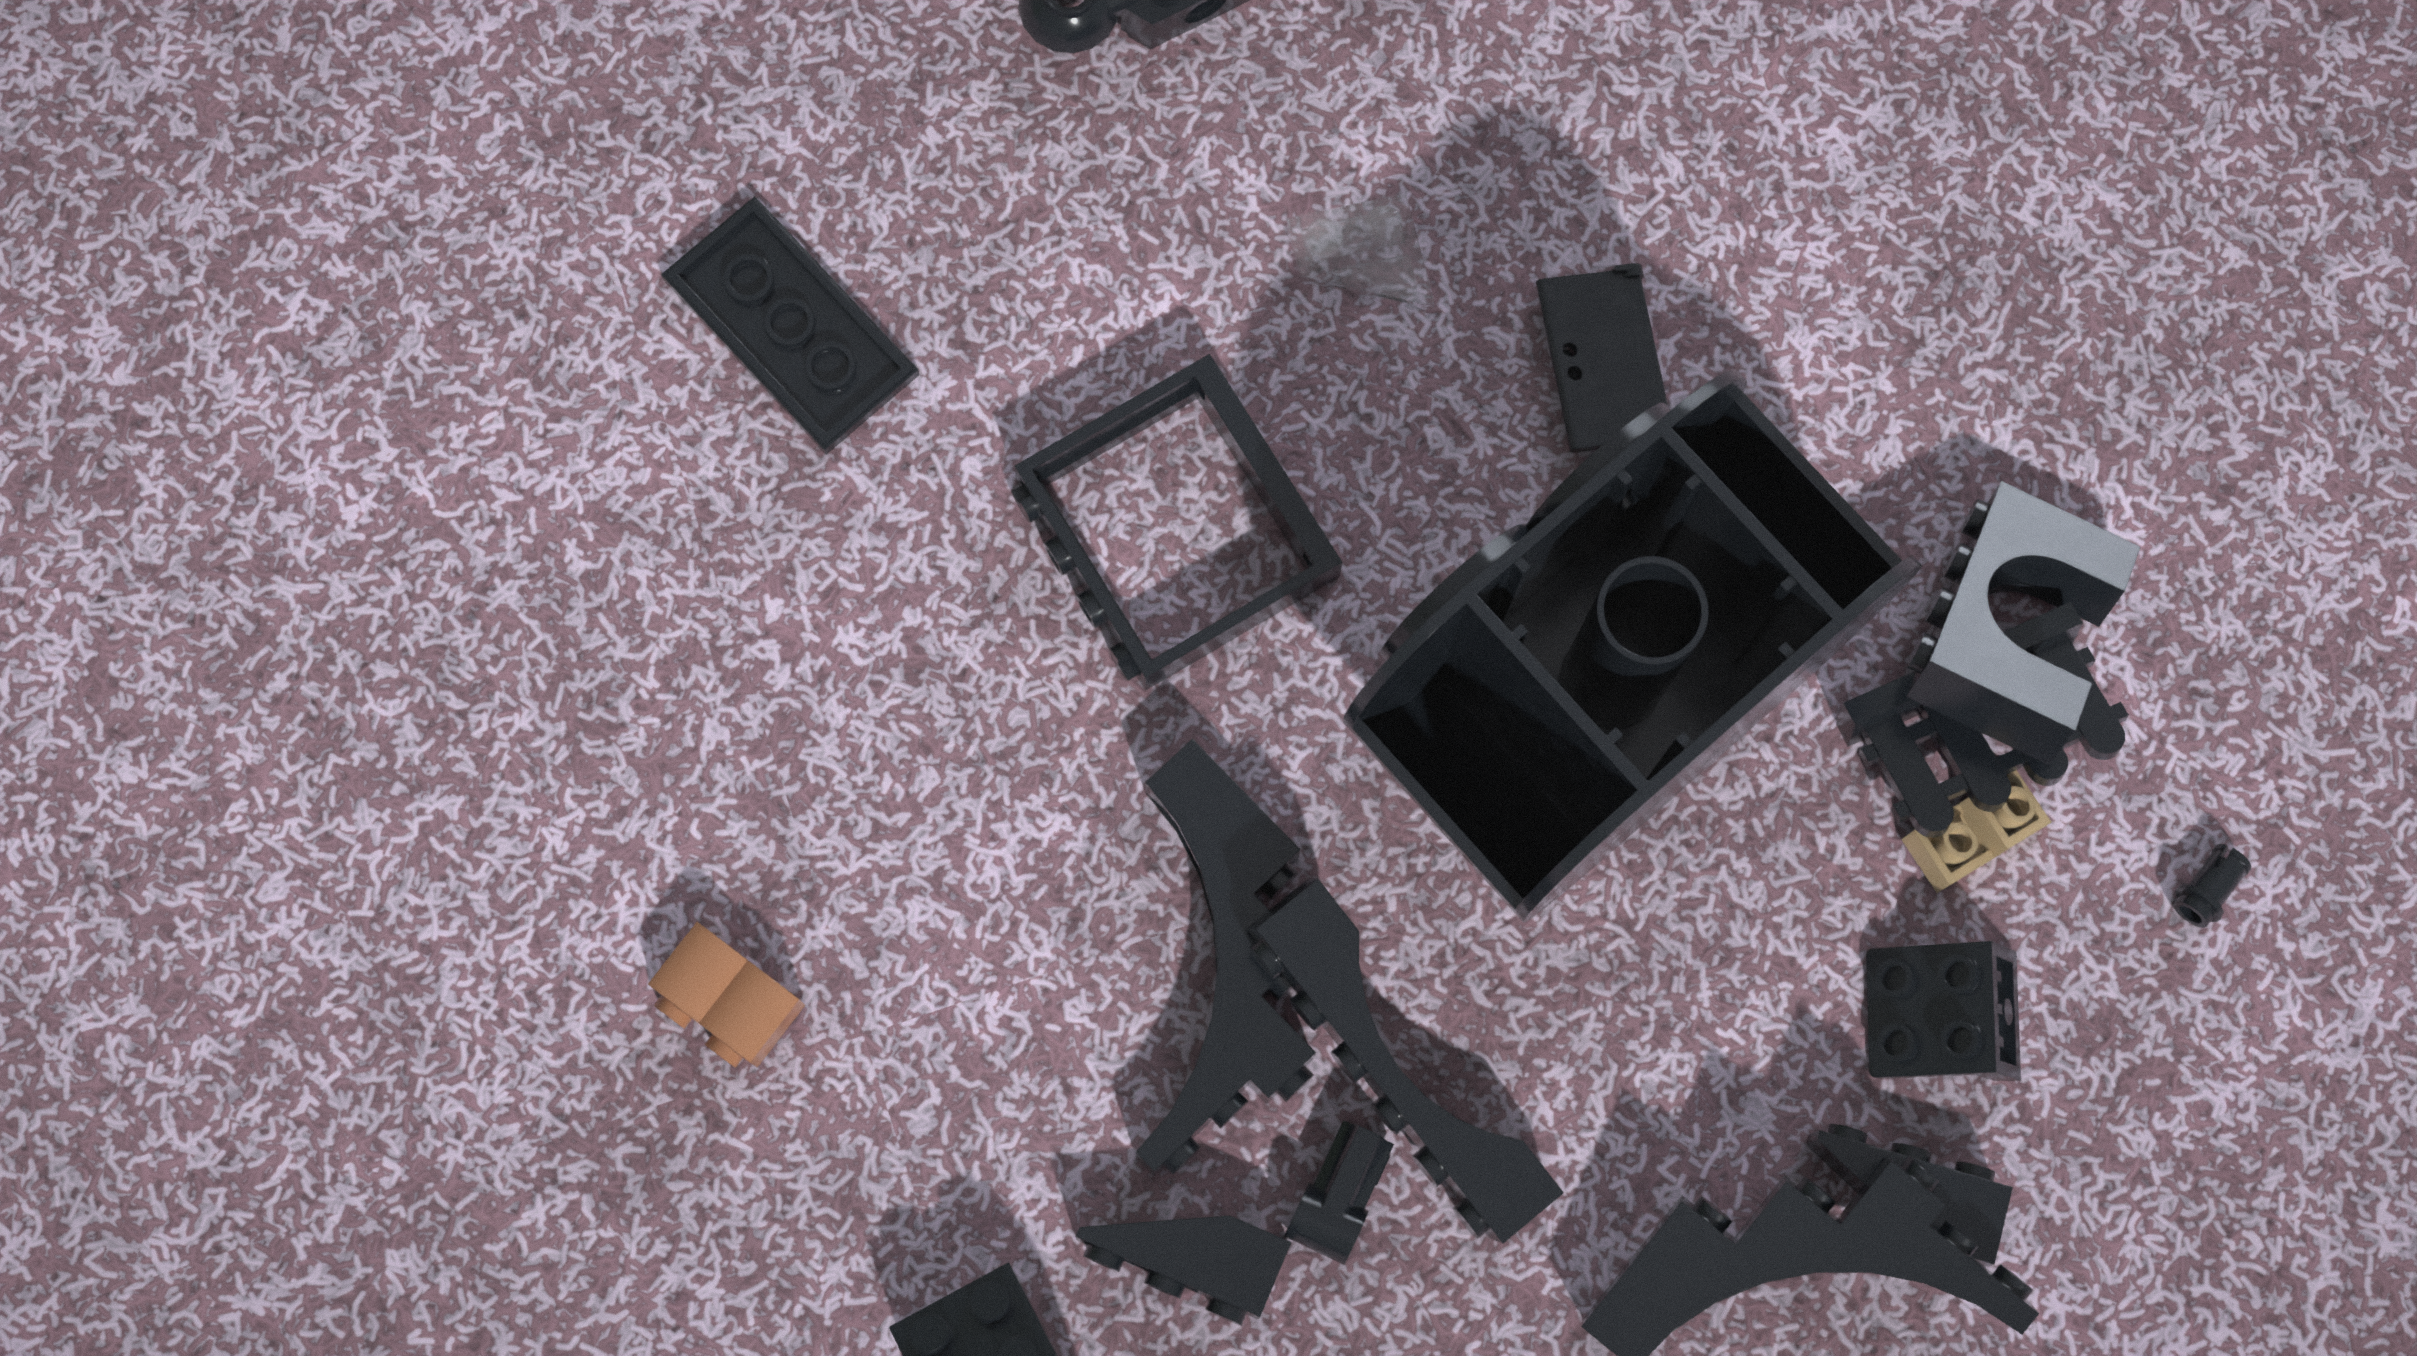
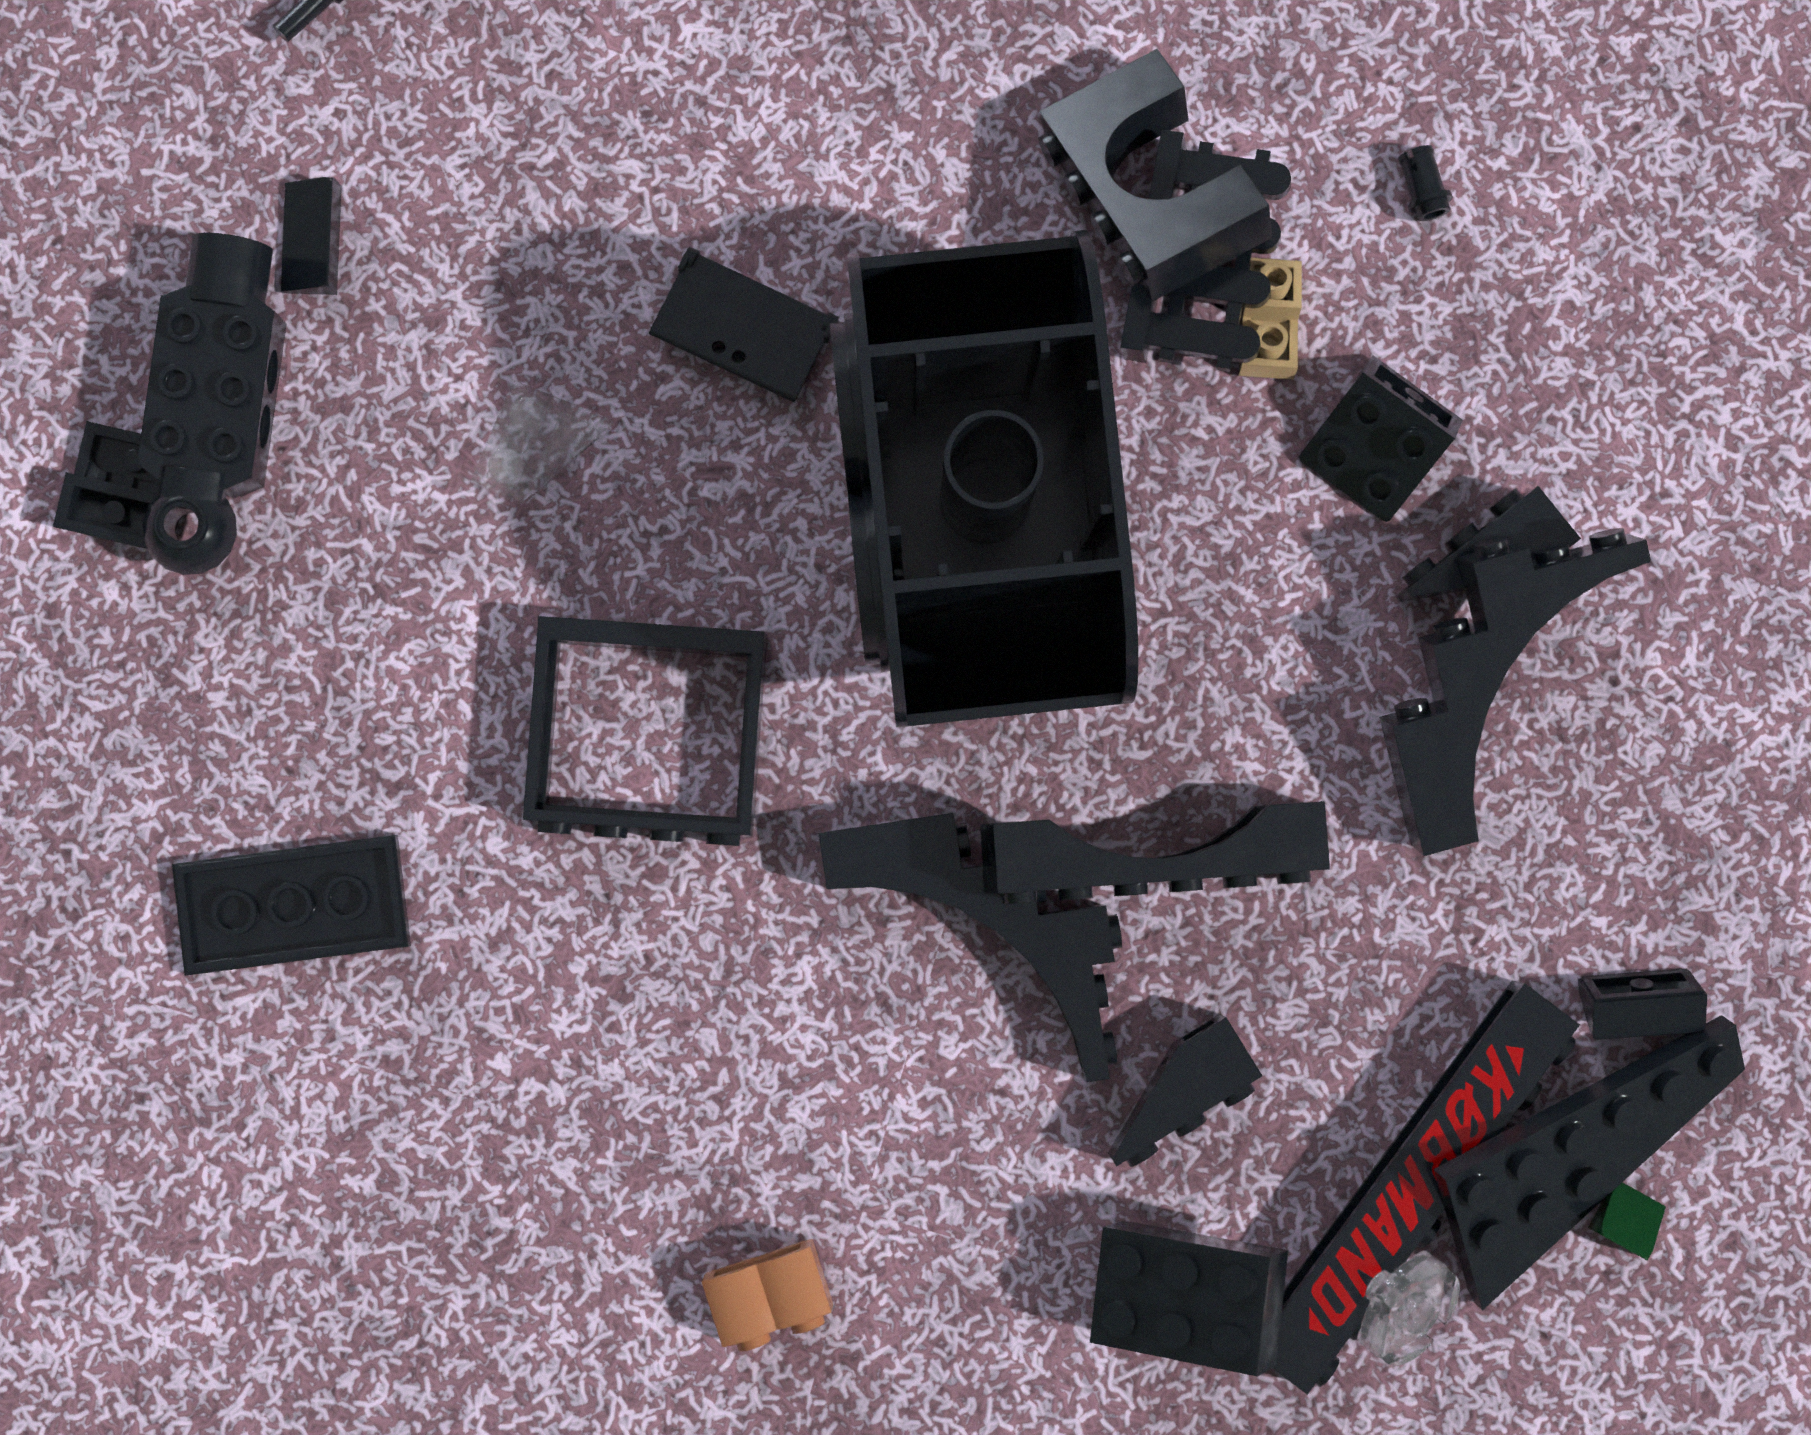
camera: 50 degrees left, 10 degrees up
(1335, 1205) = (1215, 961): black piece -> none

